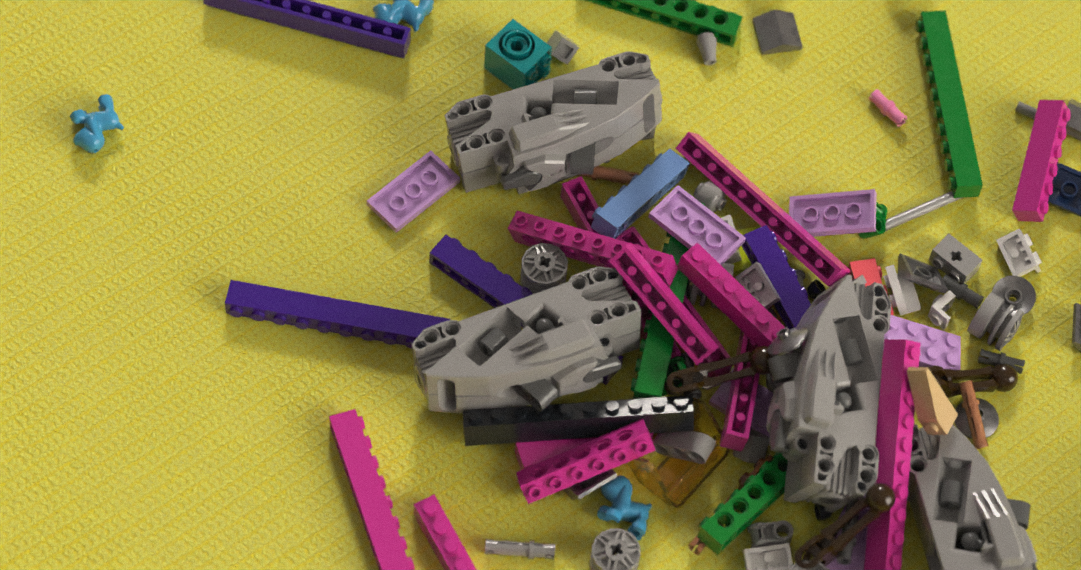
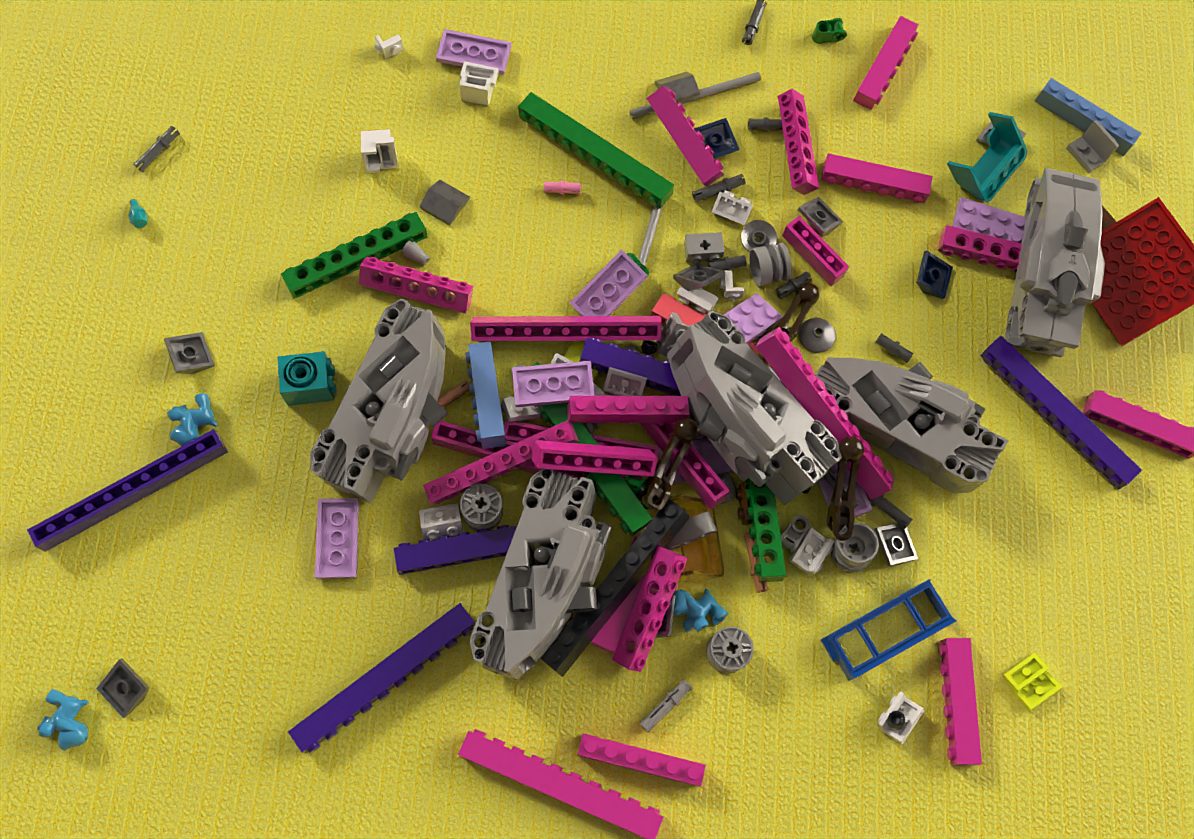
camera: 50 degrees left, 10 degrees up
(155, 144) = (123, 688): none -> flat silver slope
(501, 253) = (440, 521): none -> white bracket
(562, 47) = (324, 341): light grey panel -> none
(651, 231) = (518, 413): none -> white bracket
(680, 70) = (405, 287): none -> dark pink brick
(710, 195) = (524, 352): light grey head -> none
(787, 340) = (697, 405): flat silver dish -> none
(930, 402) = (821, 359): tan slope -> none
(971, 407) = (814, 331): nougat pin -> none
(1032, 489) = (894, 347): none -> dark grey pin
(1034, 232) = (725, 184): none -> dark grey pin
(1051, 350) = (815, 251): none -> dark pink brick

